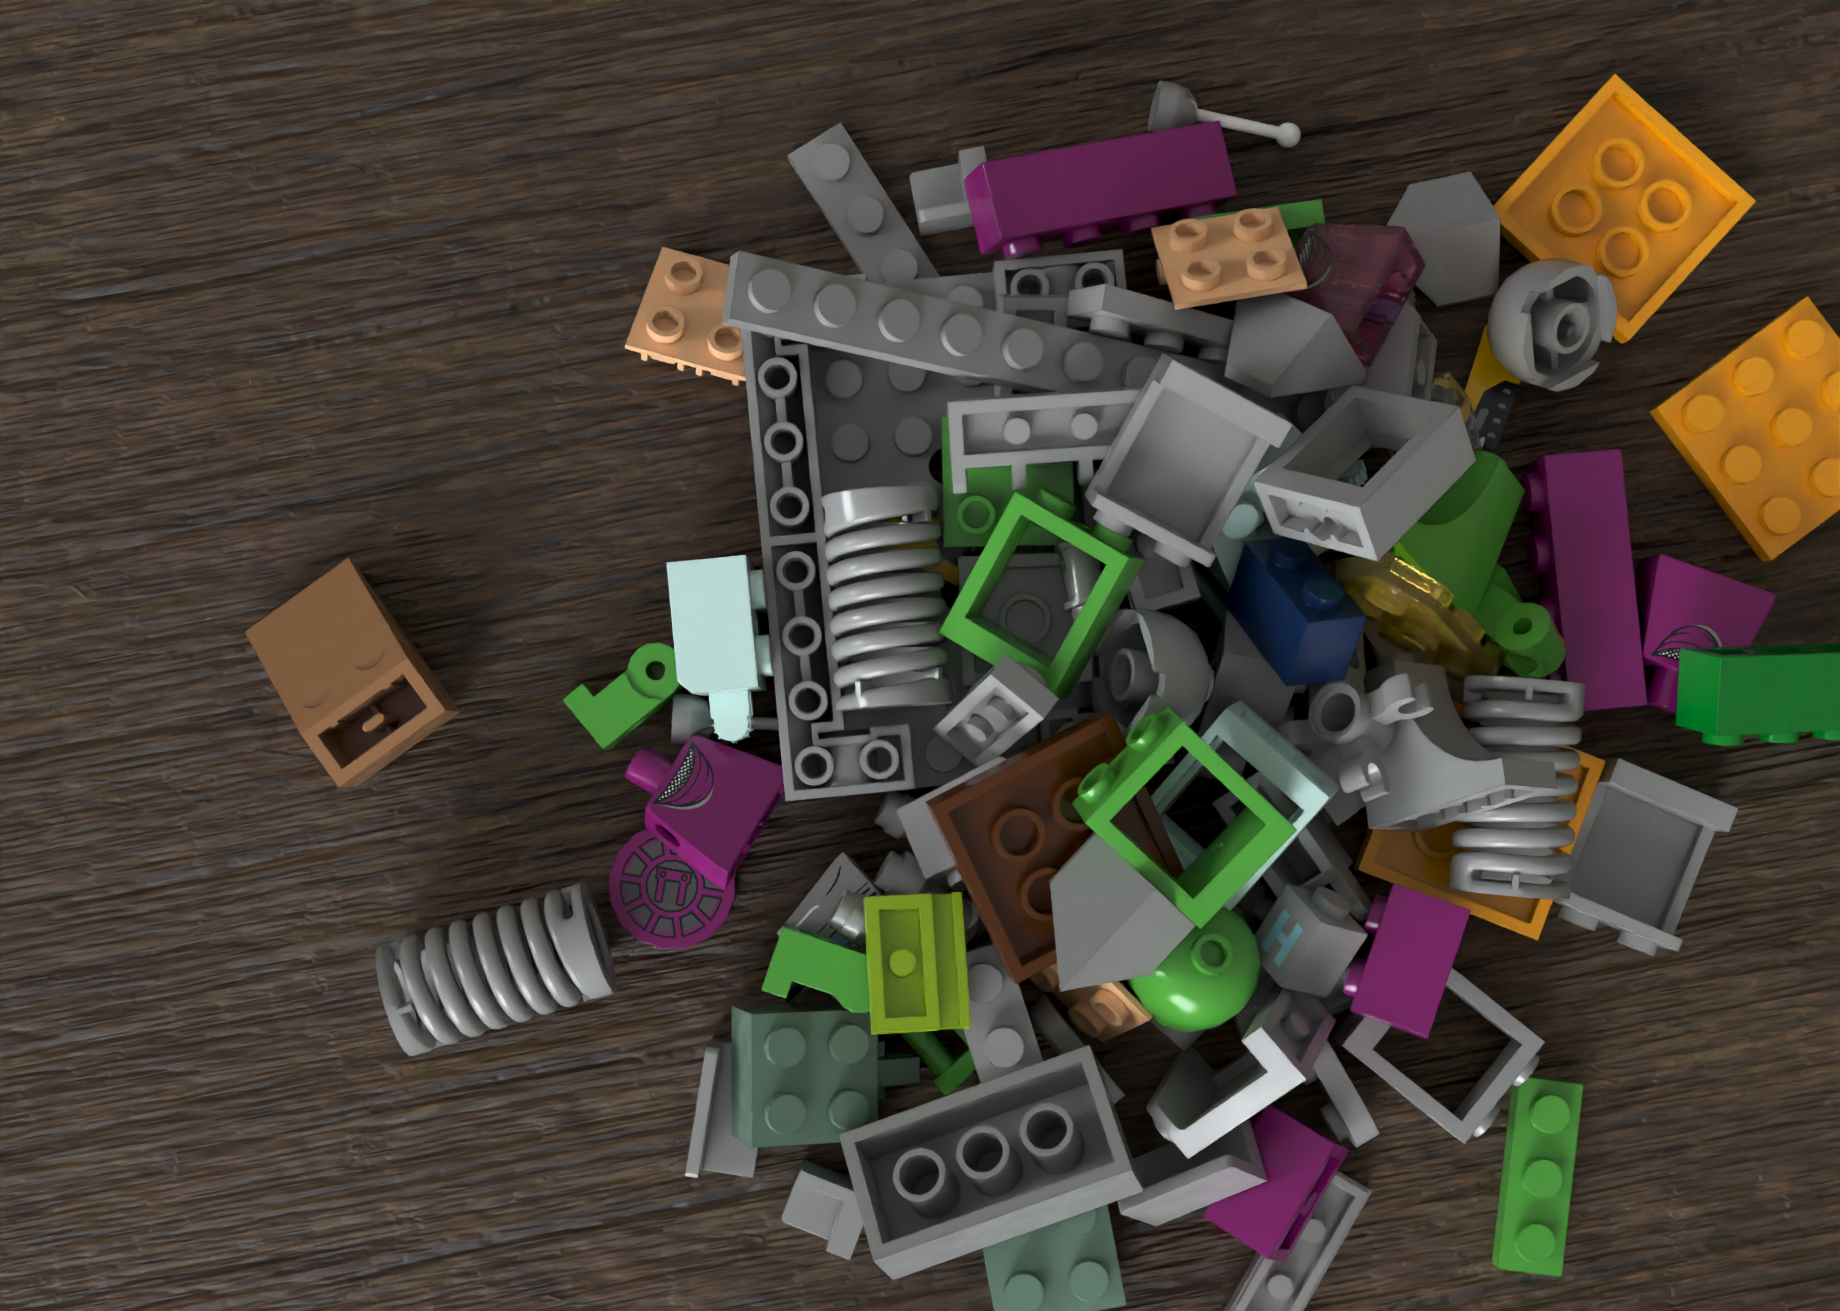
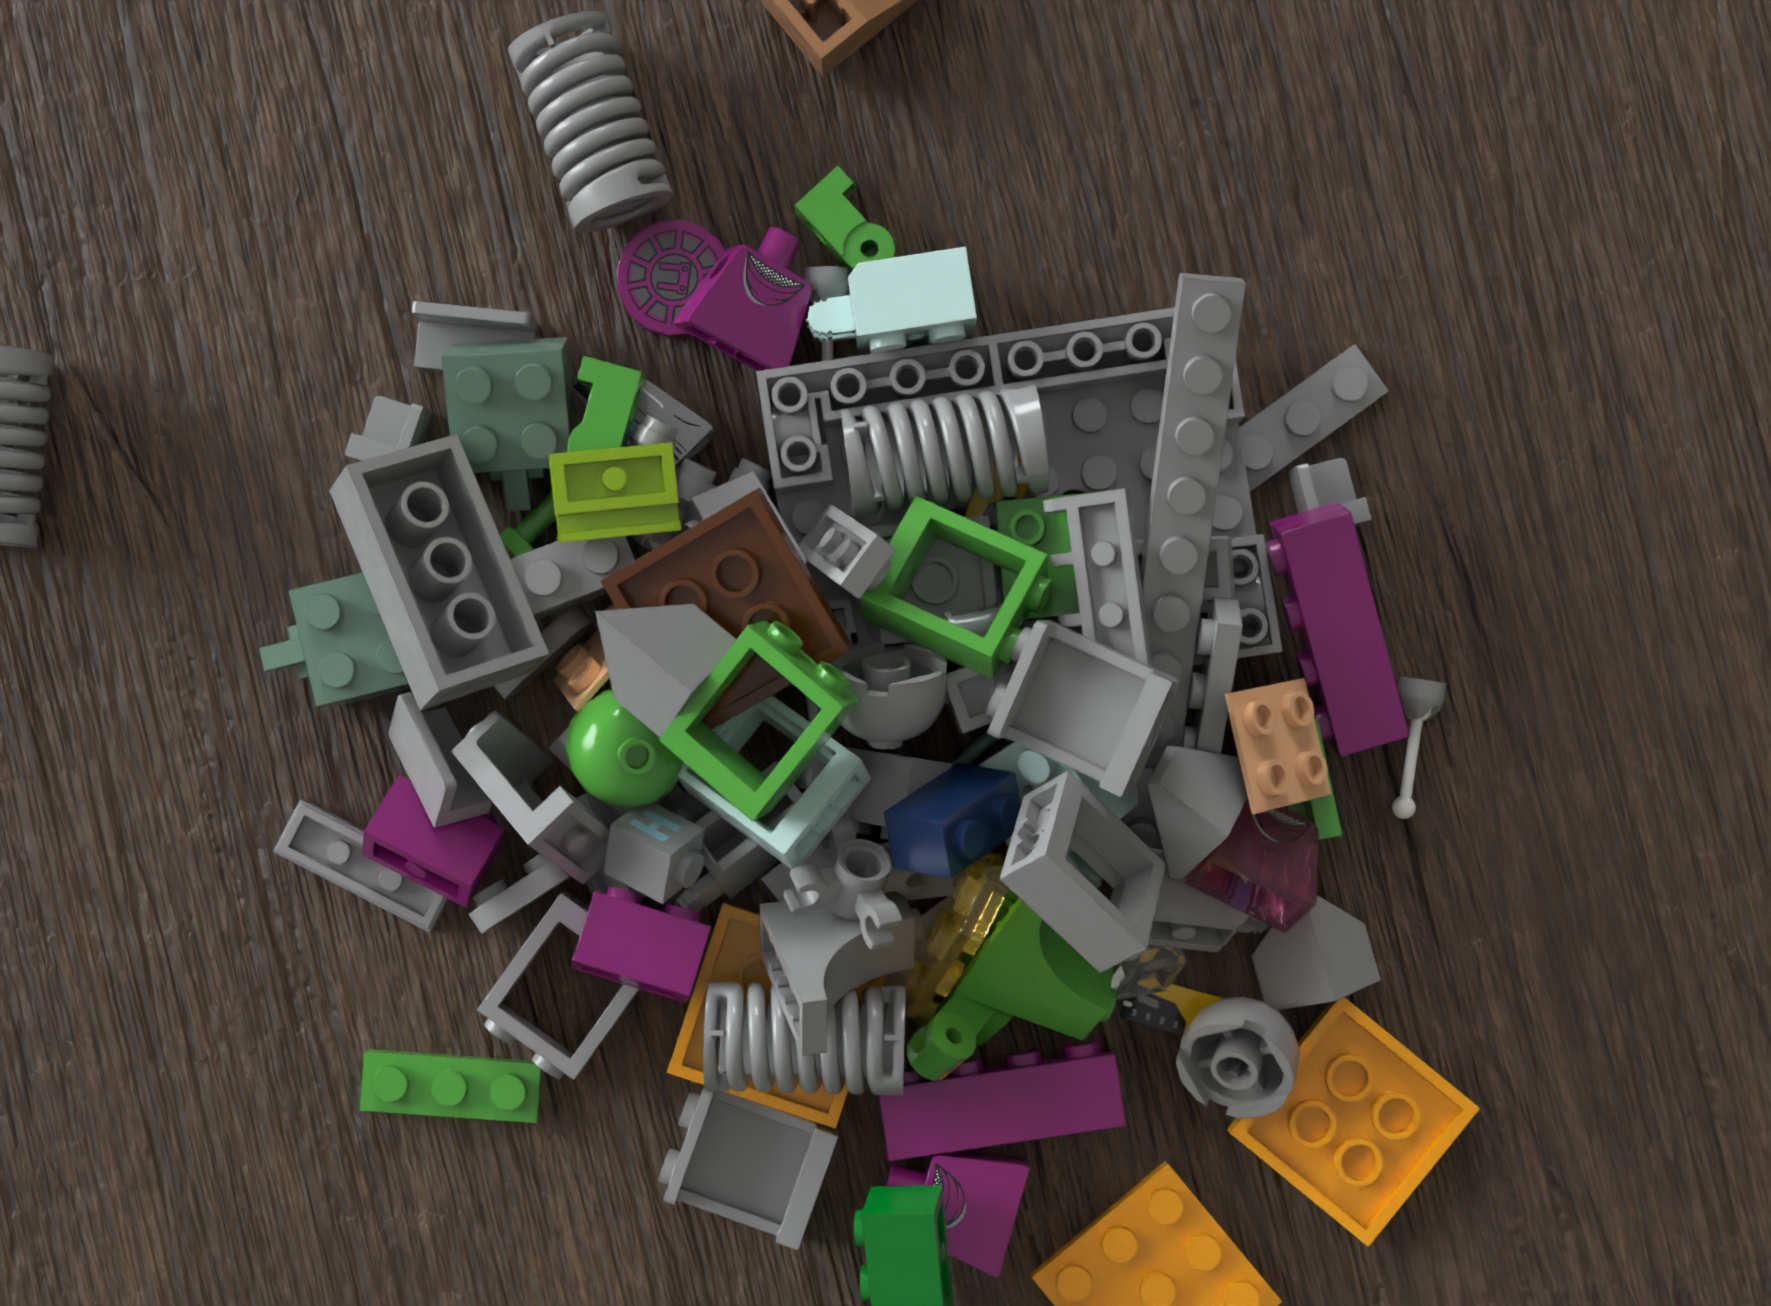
camera: 90 degrees right, 0 degrees up
(683, 318) = (1200, 246): light nougat hinge -> none

